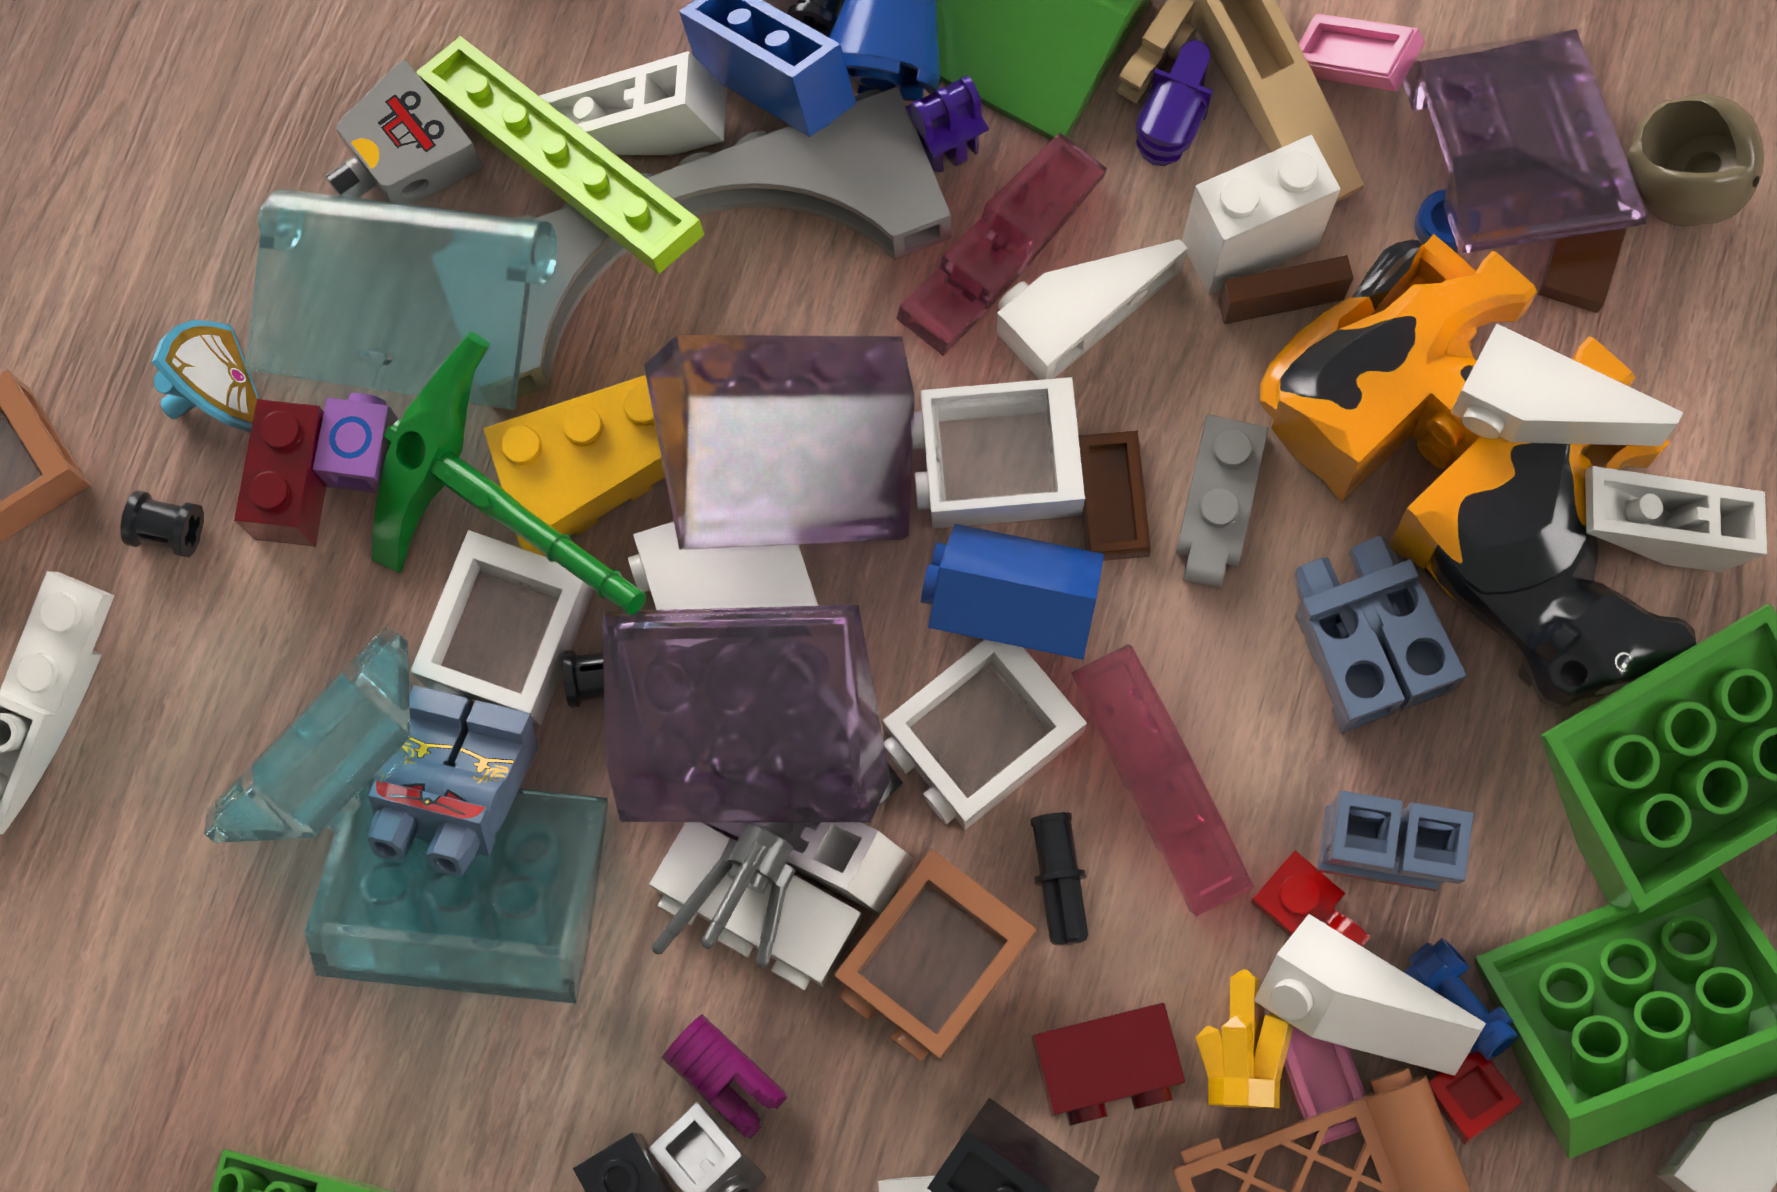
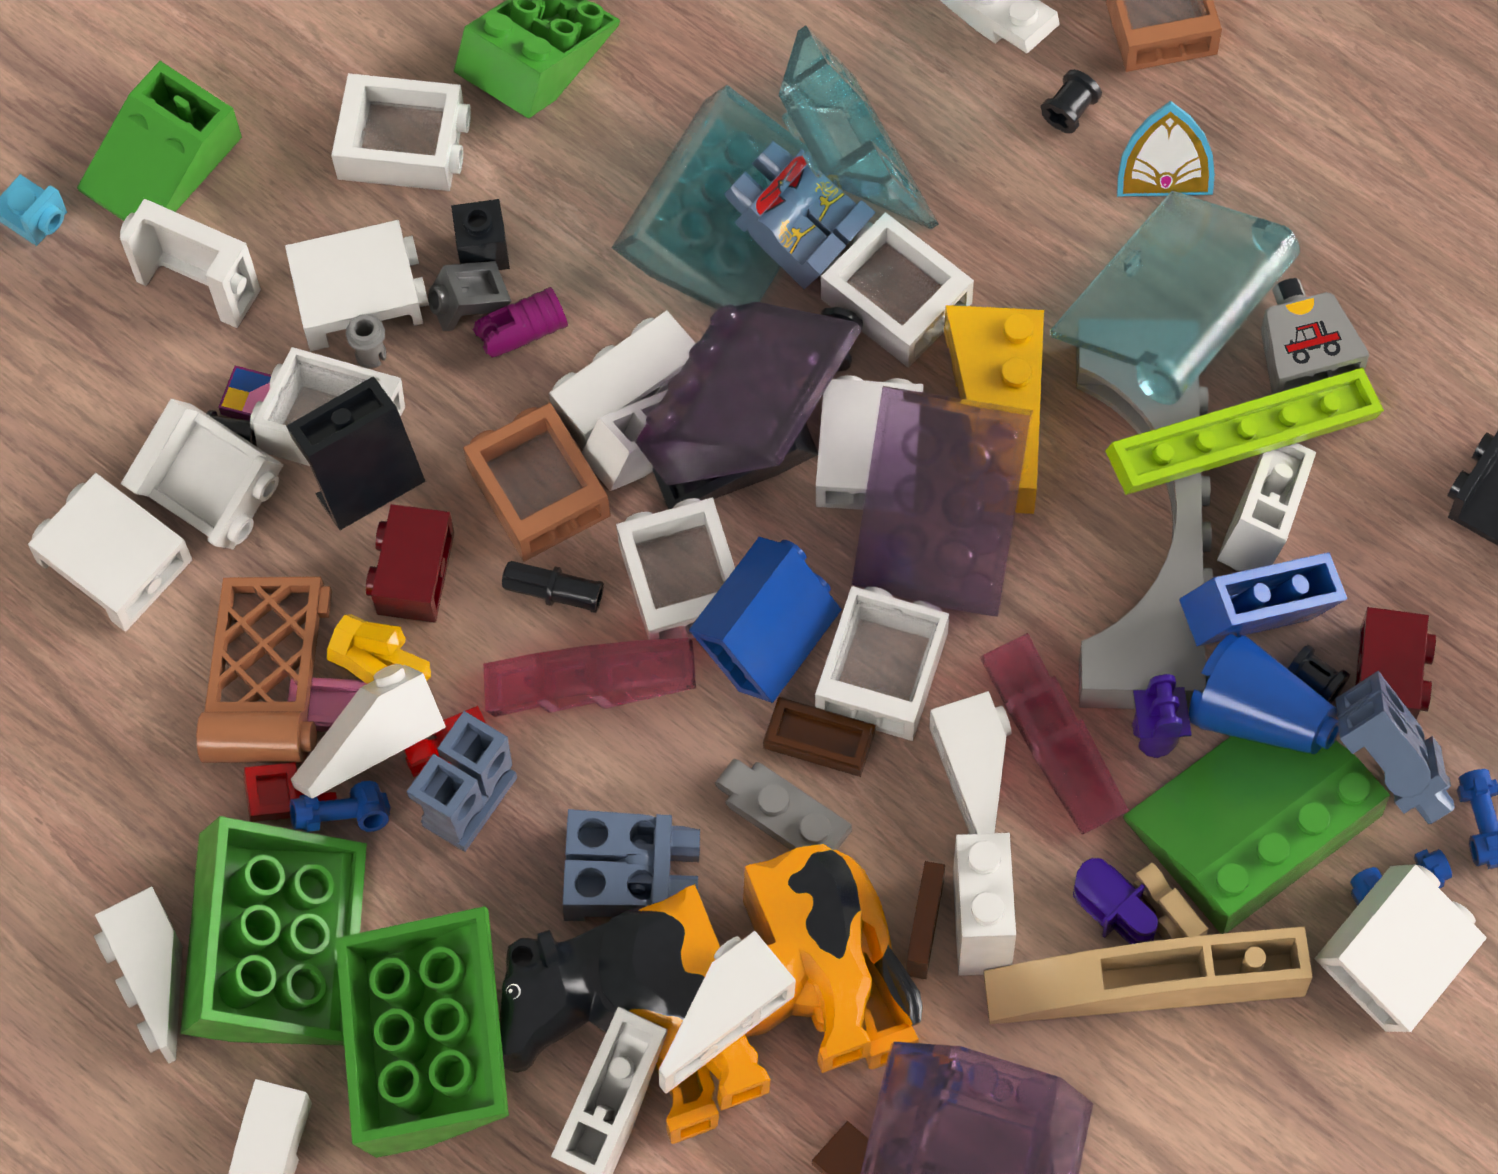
camera: 110 degrees right, 10 degrees down
(278, 488) = (1073, 186): dark red brick -> none
(353, 442) = (1077, 240): medium lavender brick -> none
(427, 457) = (1033, 269): green piece -> none
(753, 863) = (646, 369): dark grey plant -> none
(1360, 51) = (1101, 1055): bright pink tile -> none

